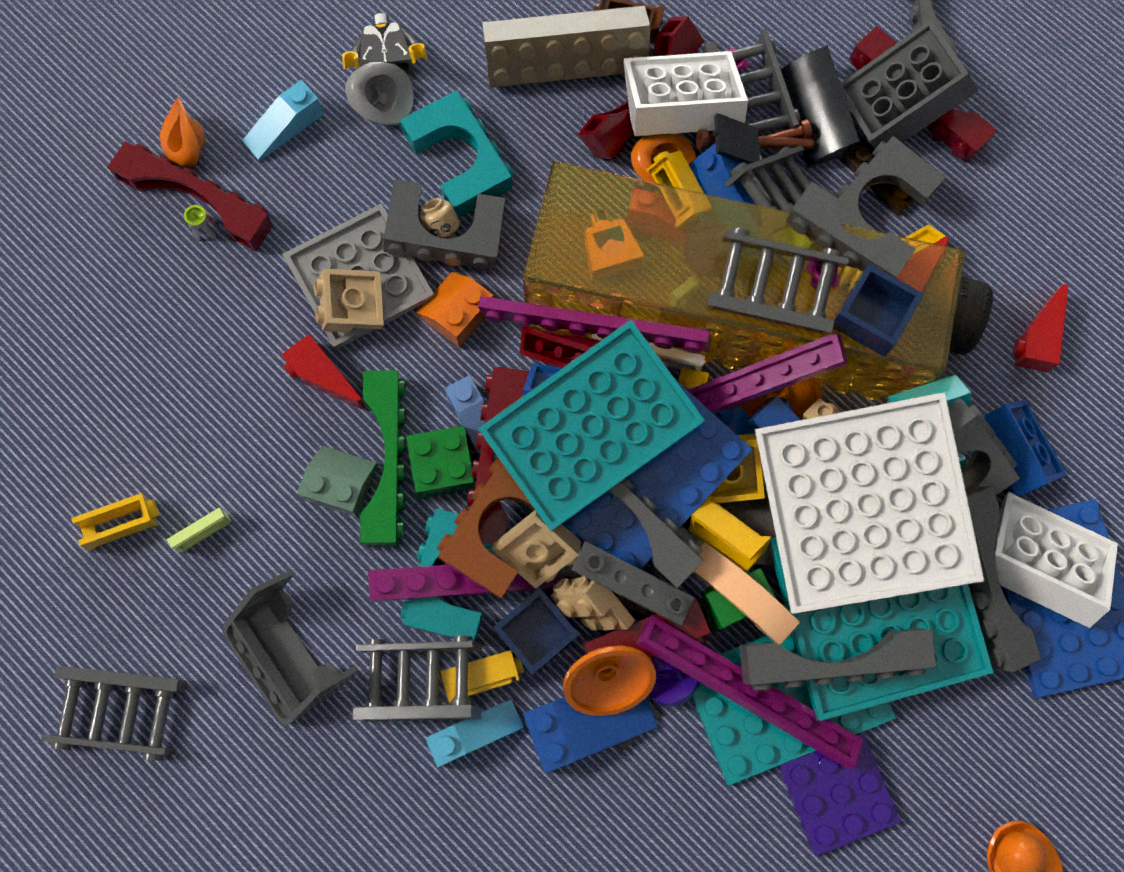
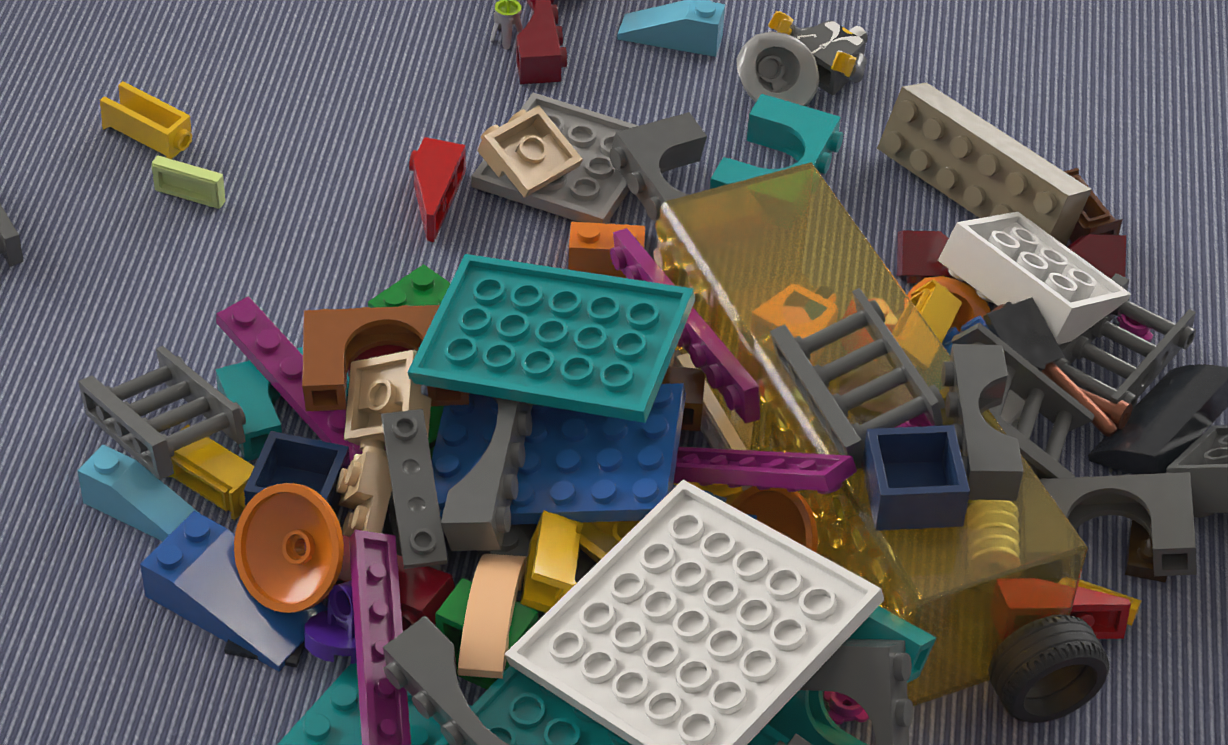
camera: 55 degrees right, 30 degrees down
(276, 655) = (112, 291): dark grey windscreen -> none
(337, 481) = (328, 253): sand green slope -> none
(381, 517) = (440, 249): green arch -> none
(439, 218) = (688, 174): tan head -> none

